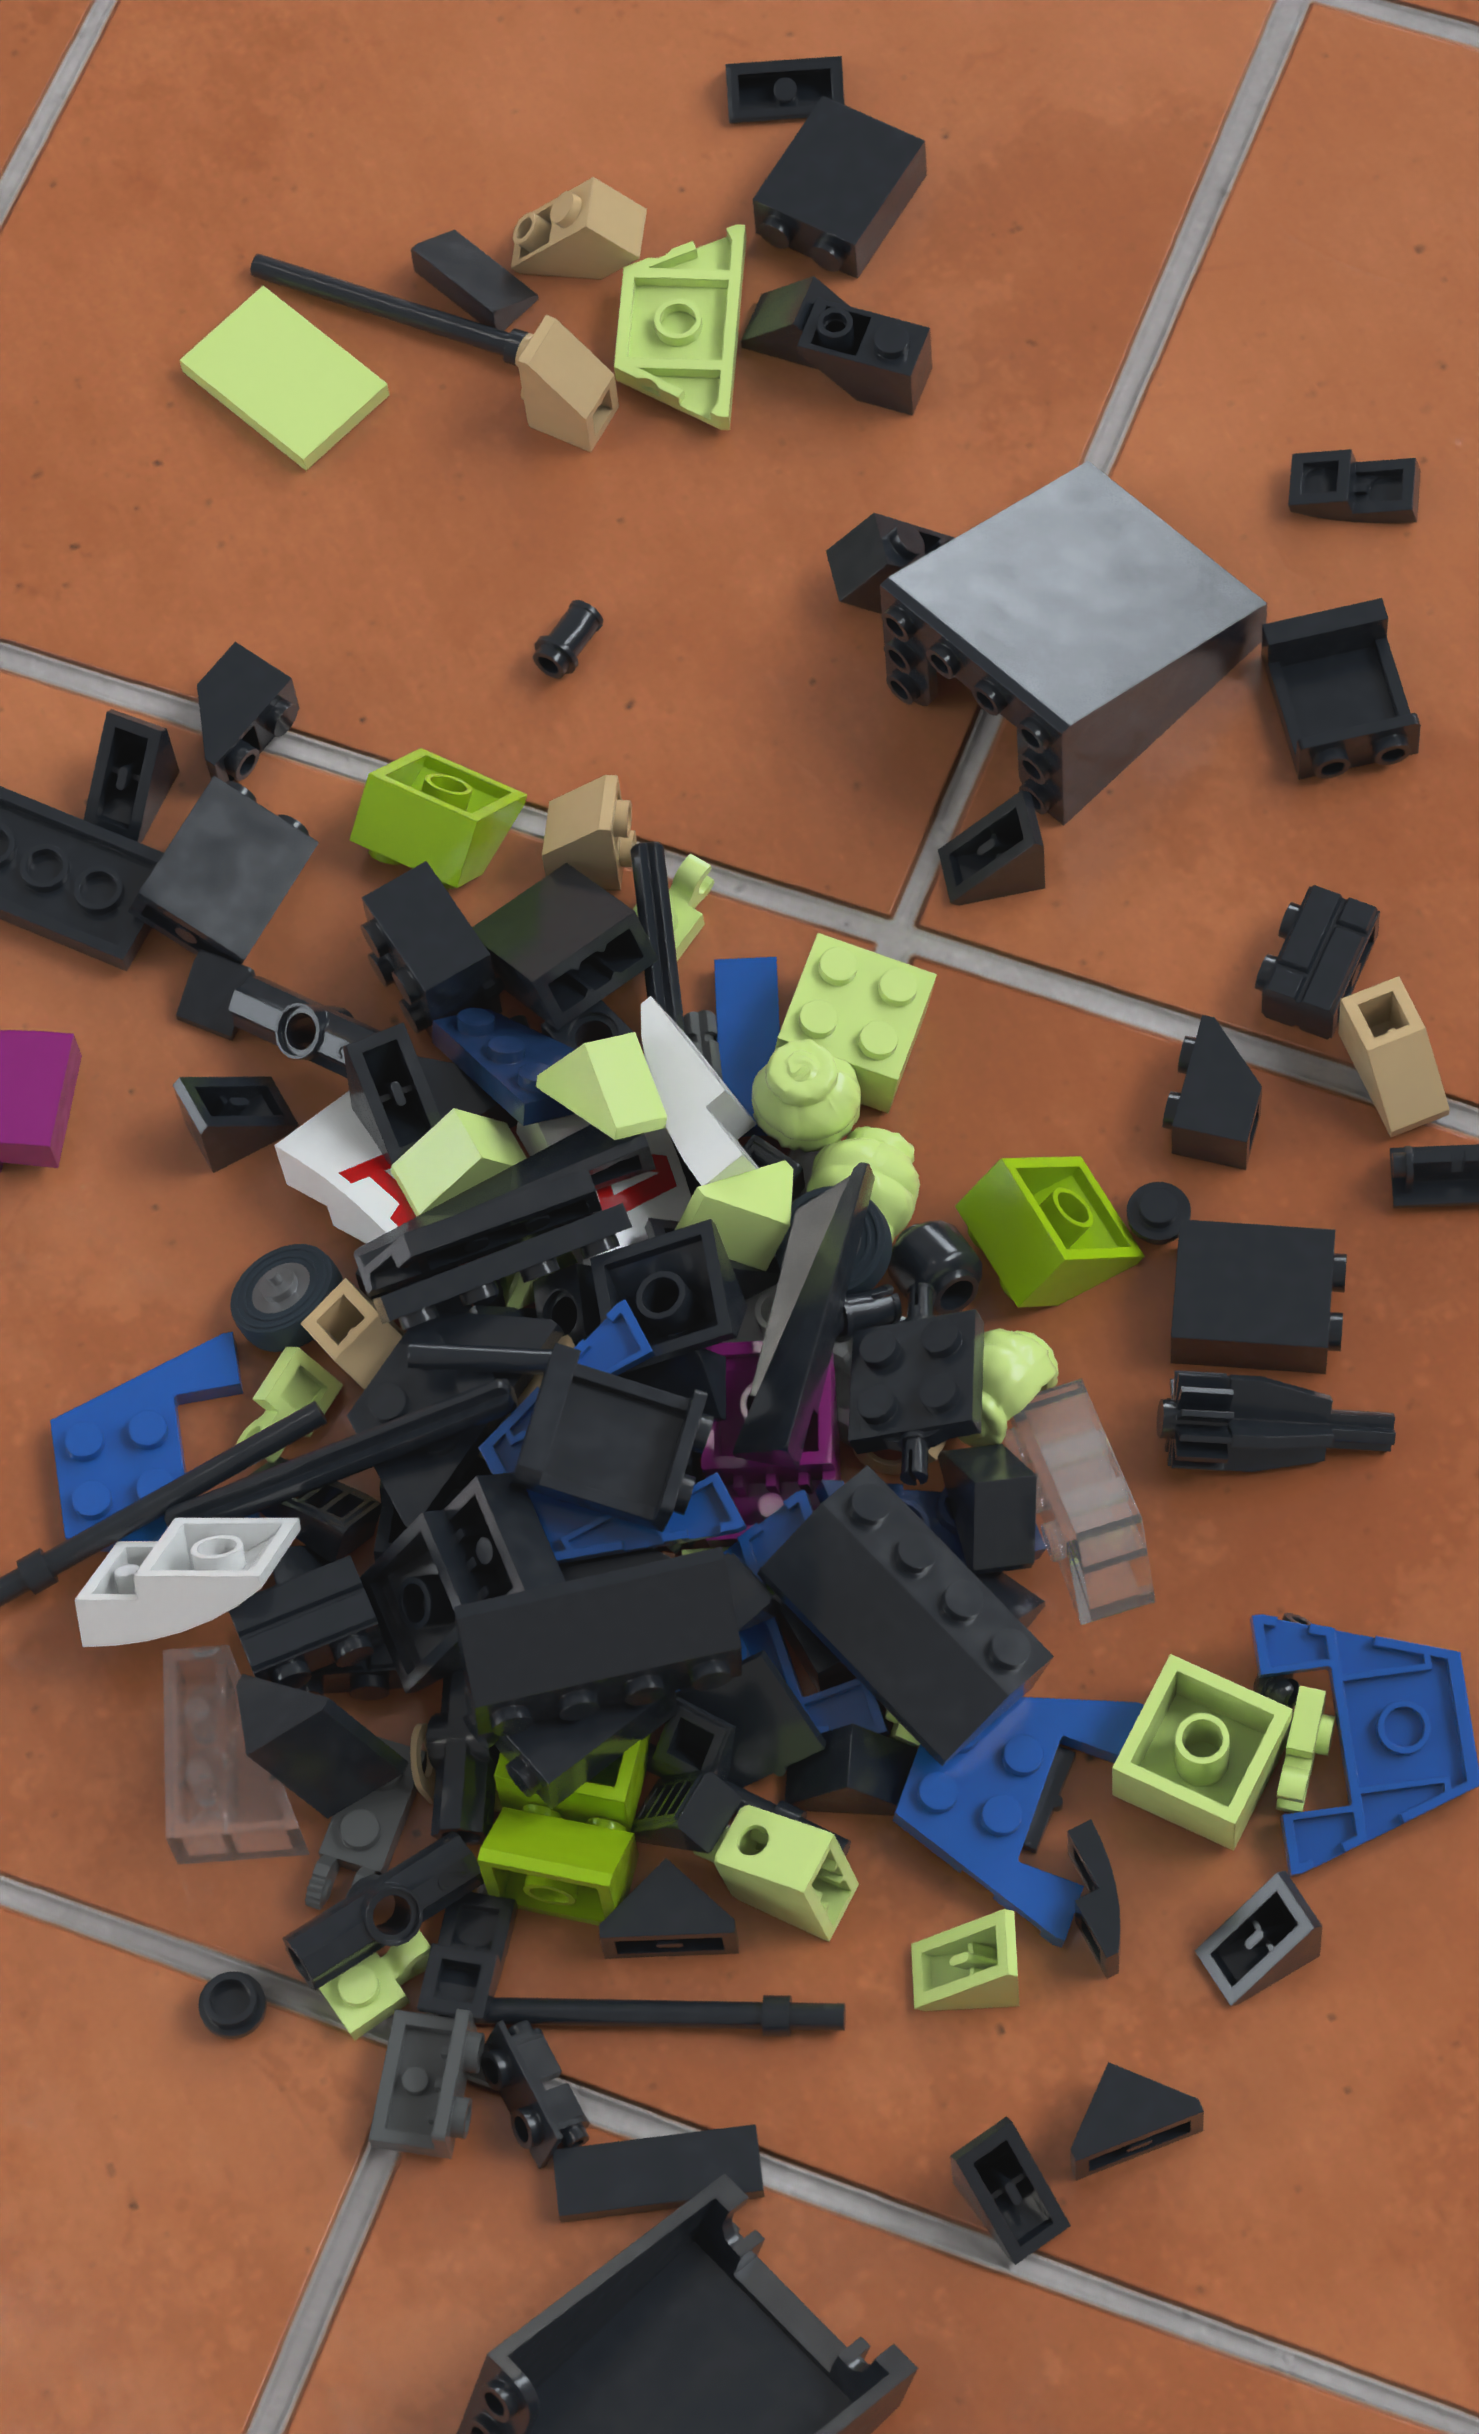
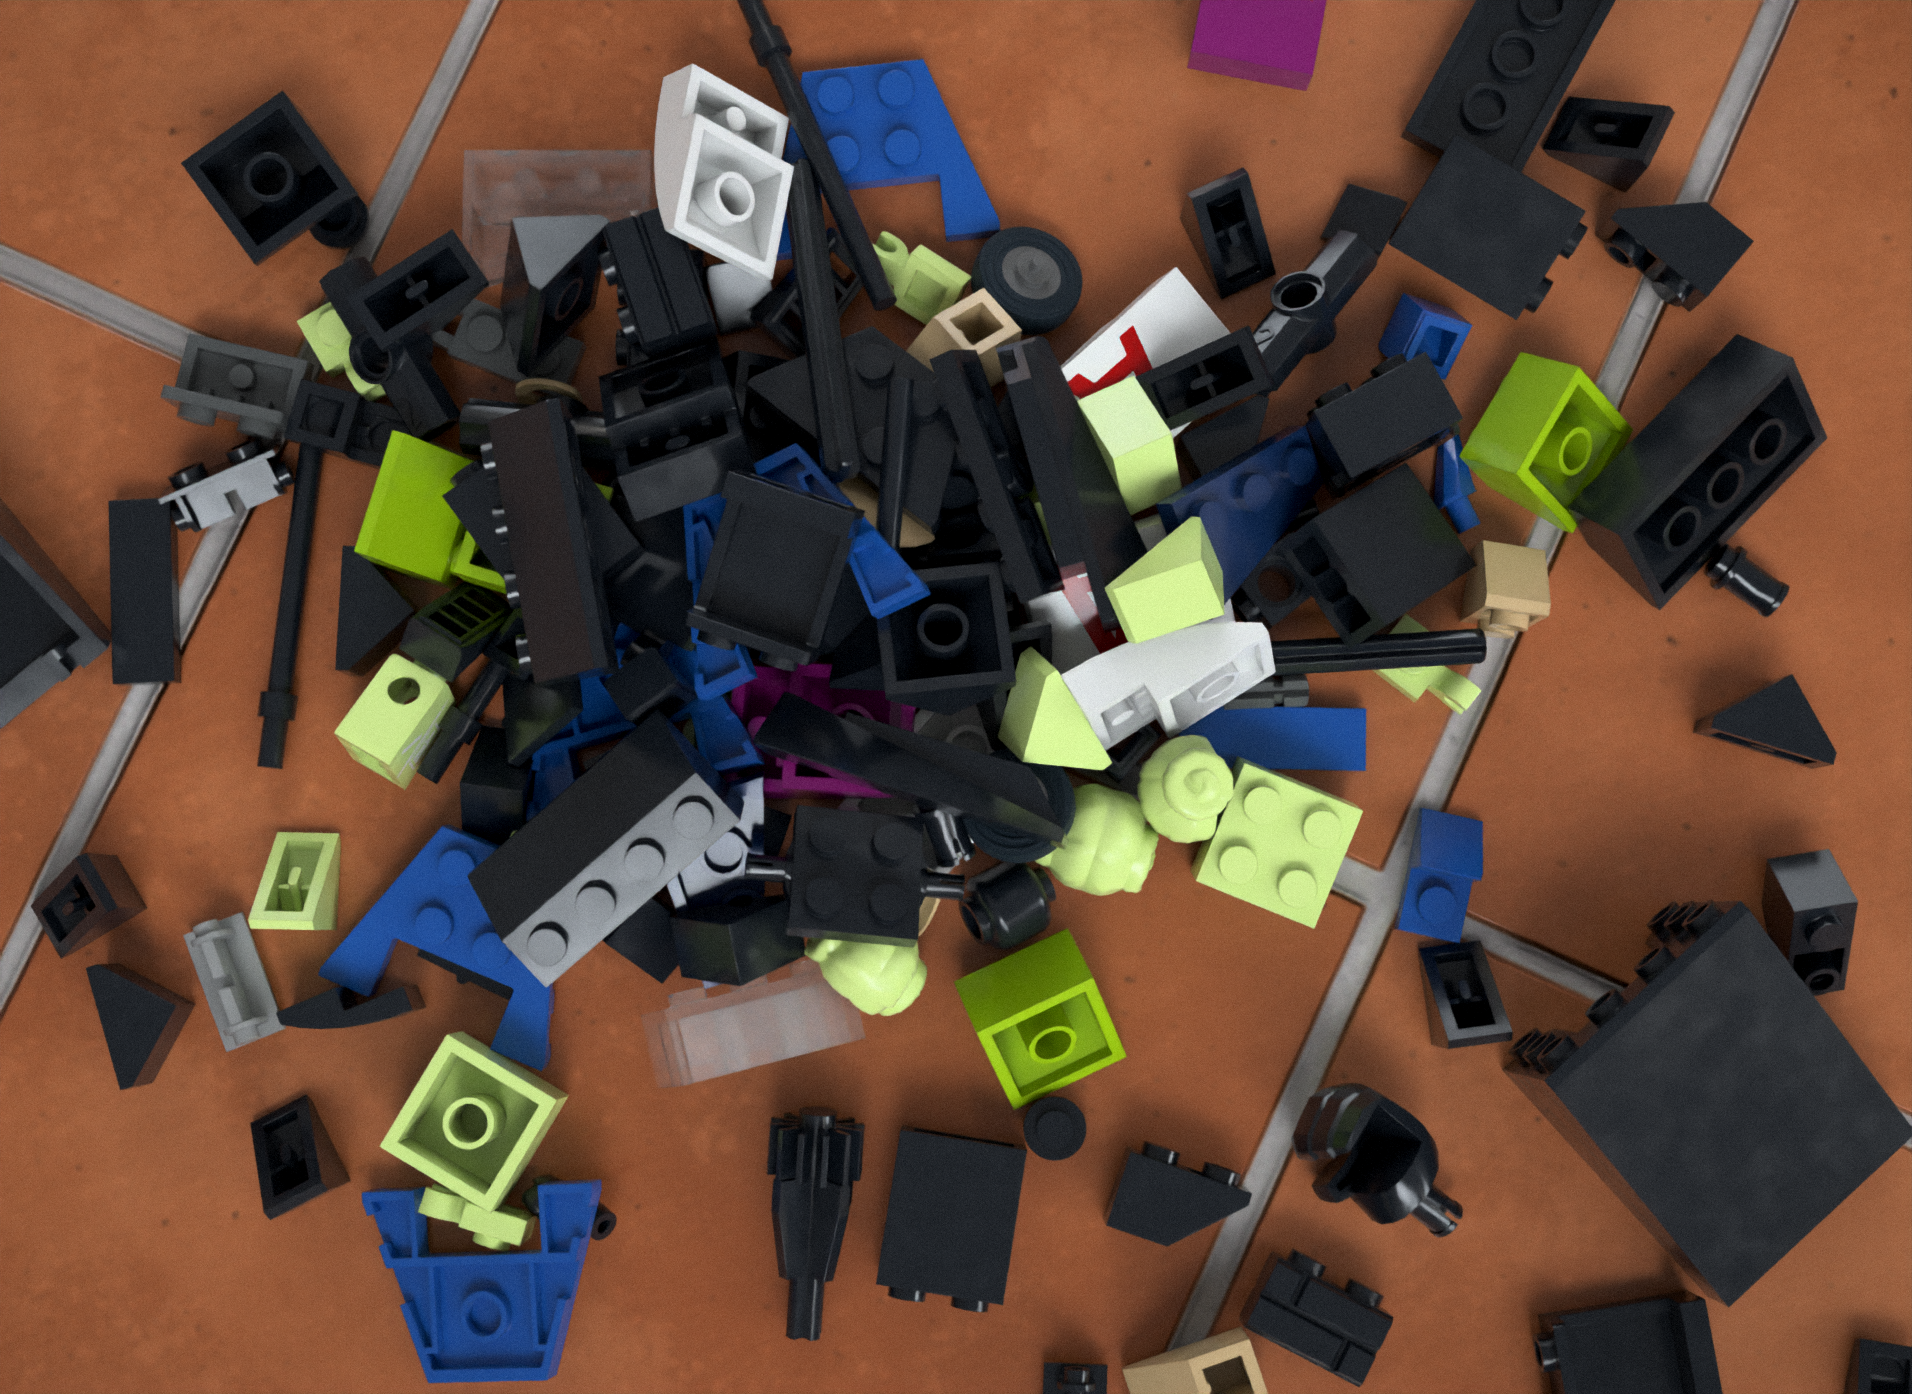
camera: 90 degrees right, 20 degrees up
(198, 2052) = (270, 177): none -> black slope
(322, 1859) = (419, 293): none -> black slope
(331, 935) = (1425, 327): none -> blue slope
(459, 684) = (1700, 469): none -> black slope
(488, 896) = (1454, 486): none -> blue bar
(705, 607) = (1774, 723): none -> black slope
(866, 886) = (1440, 875): none -> blue slope
(1080, 2032) = (233, 980): none -> light grey hinge
(1154, 917) = (1378, 1157): none -> black piece

